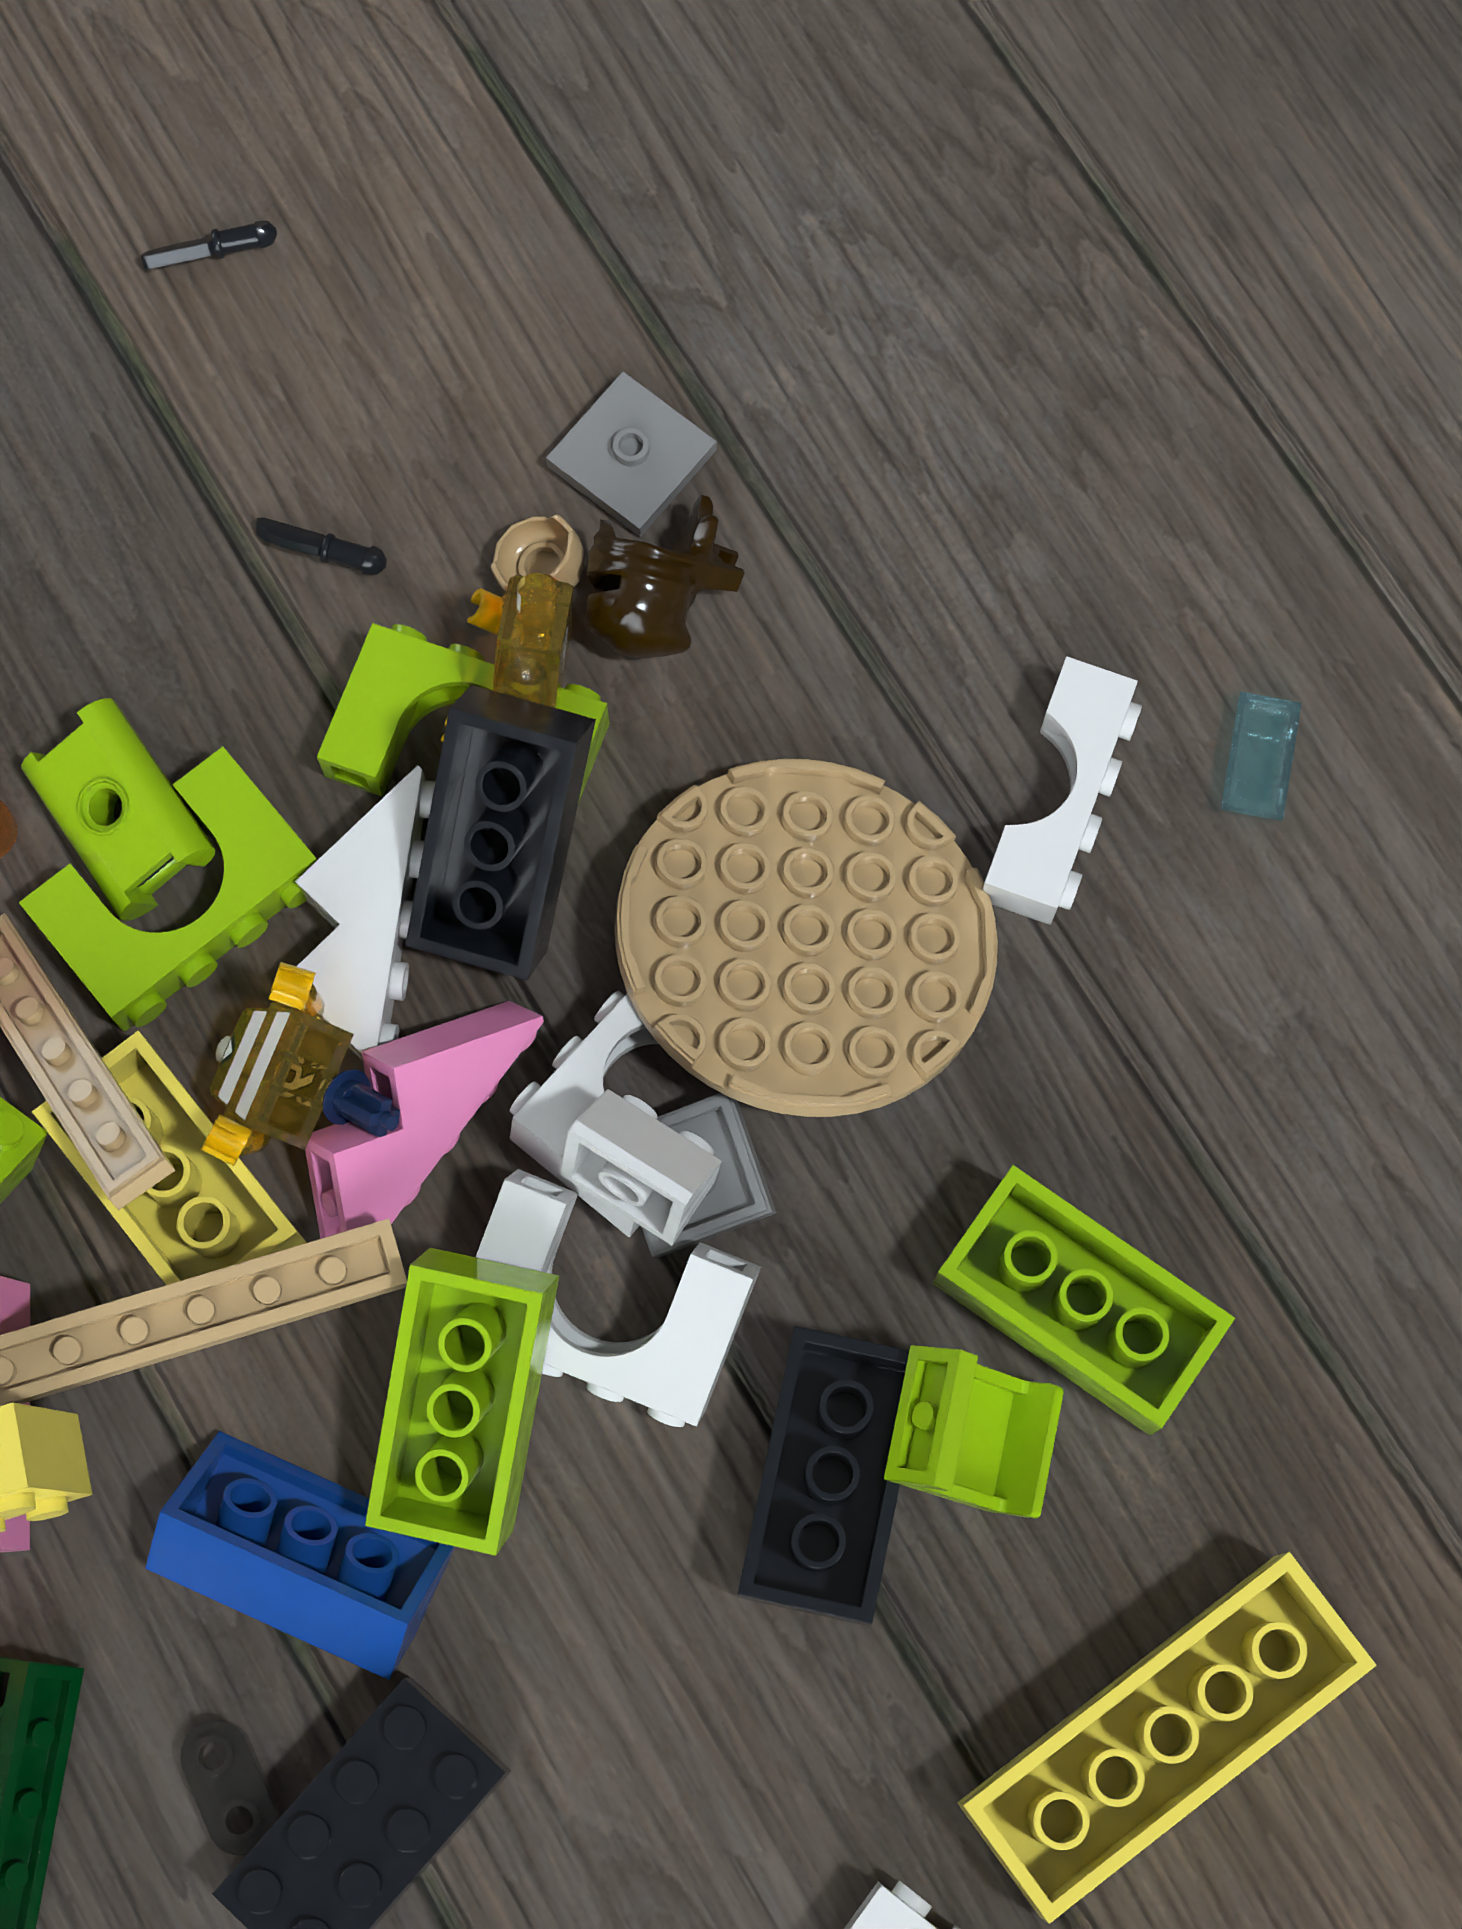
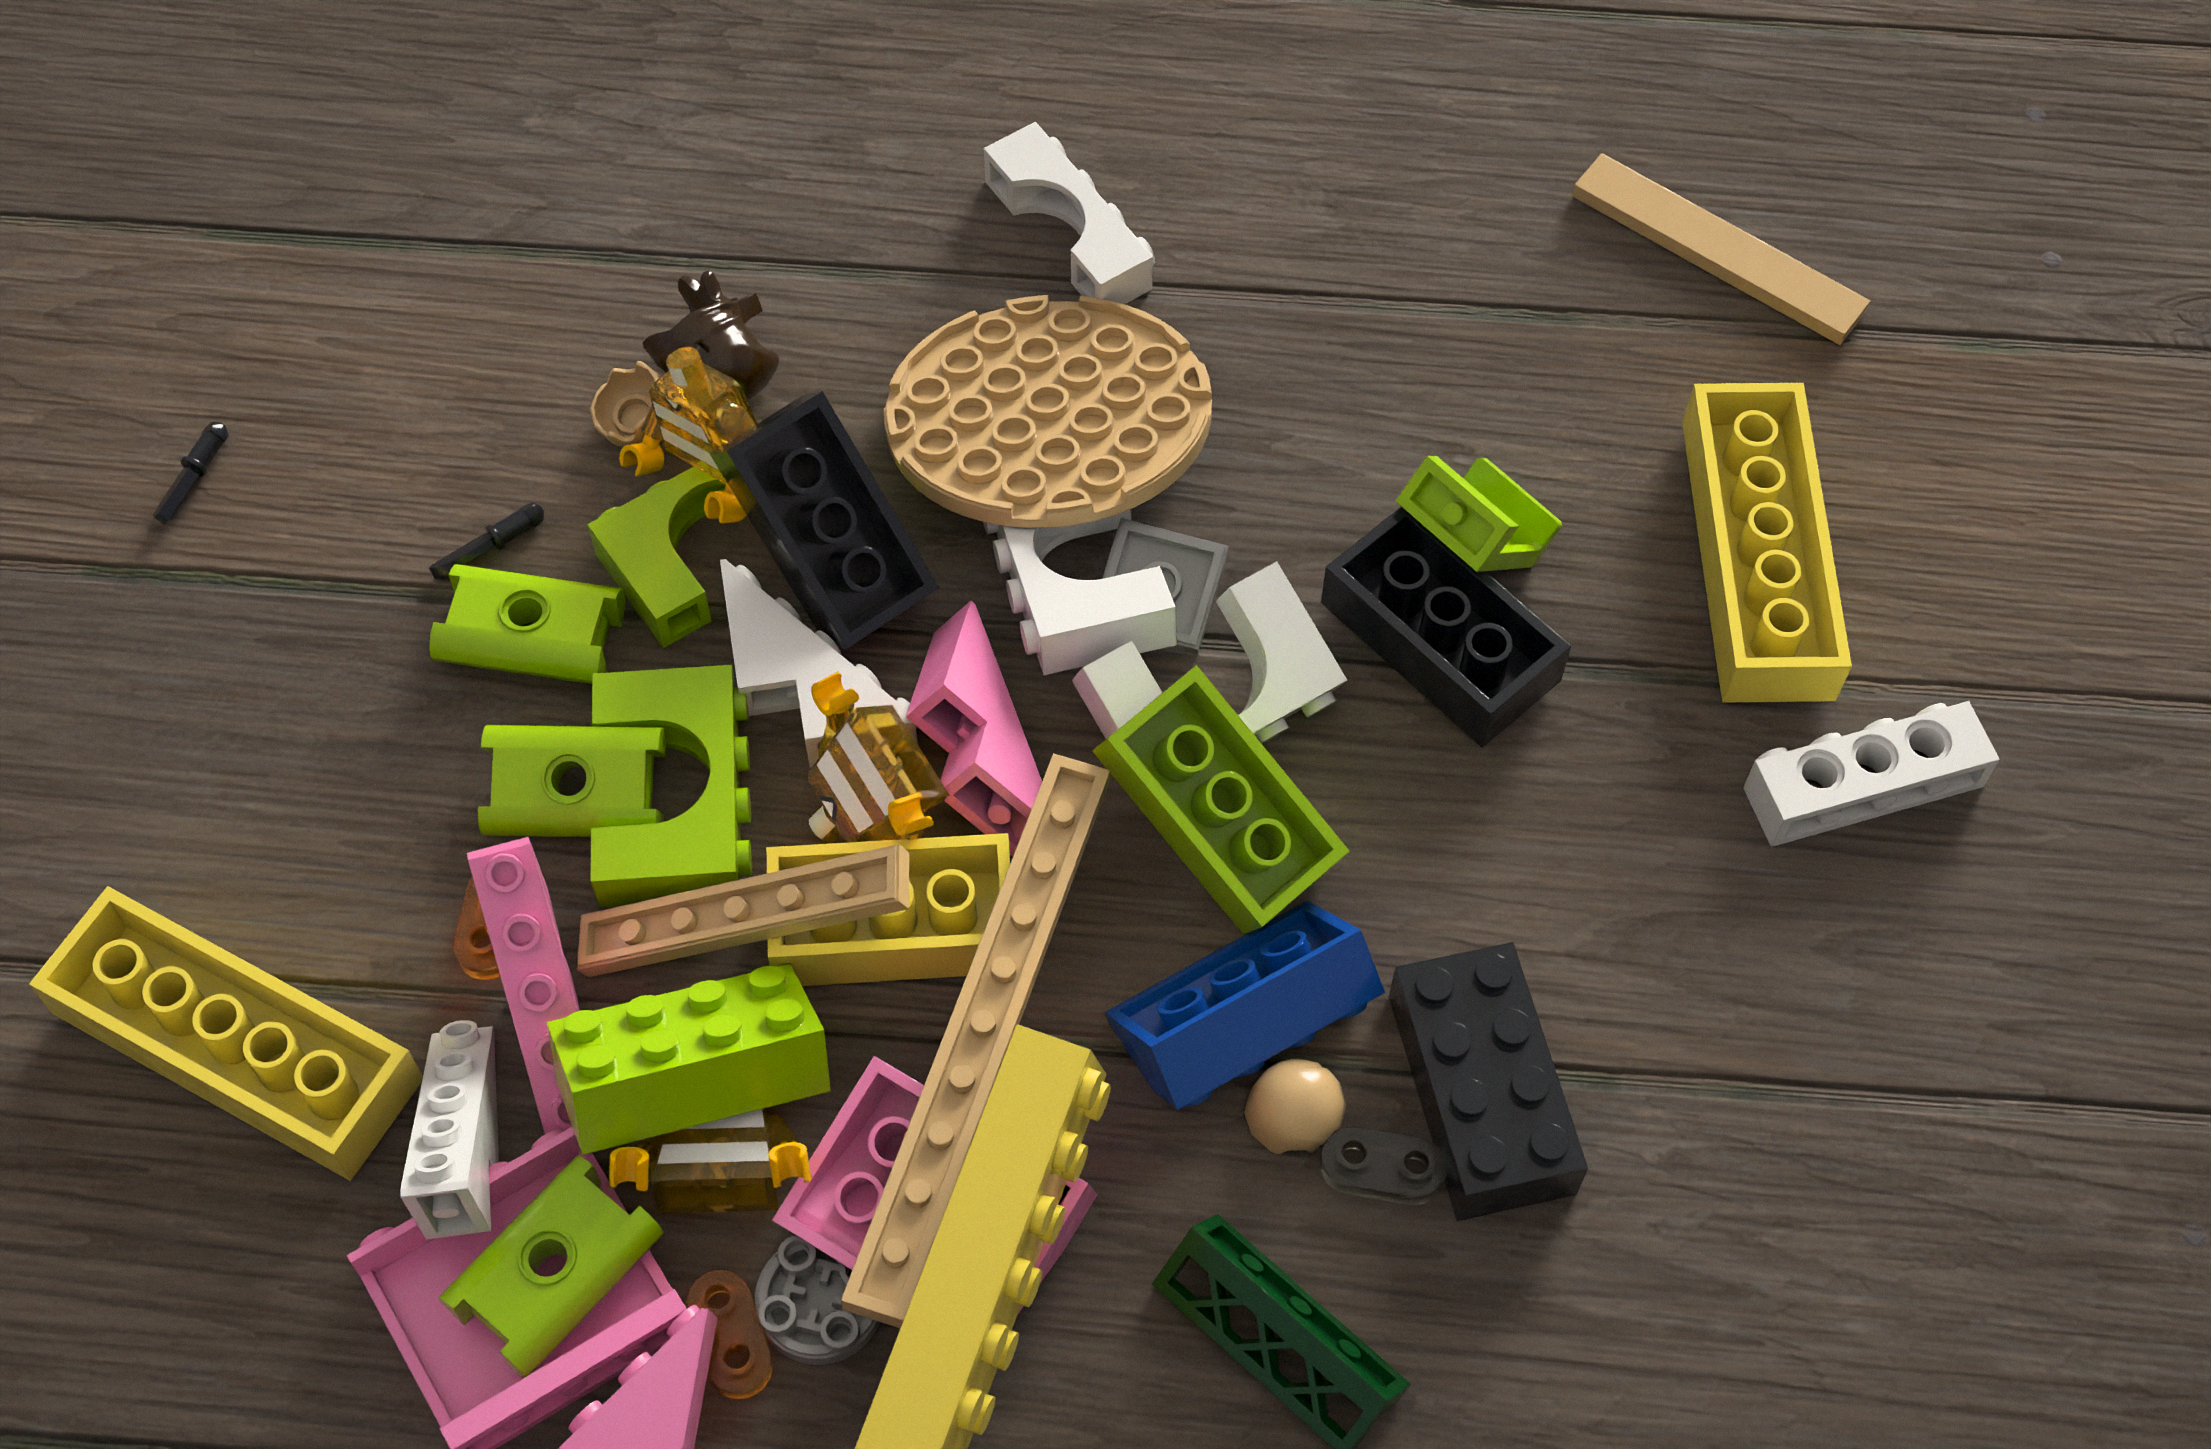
camera: 55 degrees left, 15 degrees down
(234, 1669) = (1295, 1106): none -> tan hair
(243, 605) = (494, 604): none -> lime piece
(352, 1099) = (949, 735): dark blue piece -> none
(631, 454) = (600, 315): light grey plate -> none
(639, 1164) = (1149, 568): white slope -> none
(1083, 1301) = (1441, 399): lime brick -> none
(1261, 756) = (1138, 105): clear light blue tile -> none

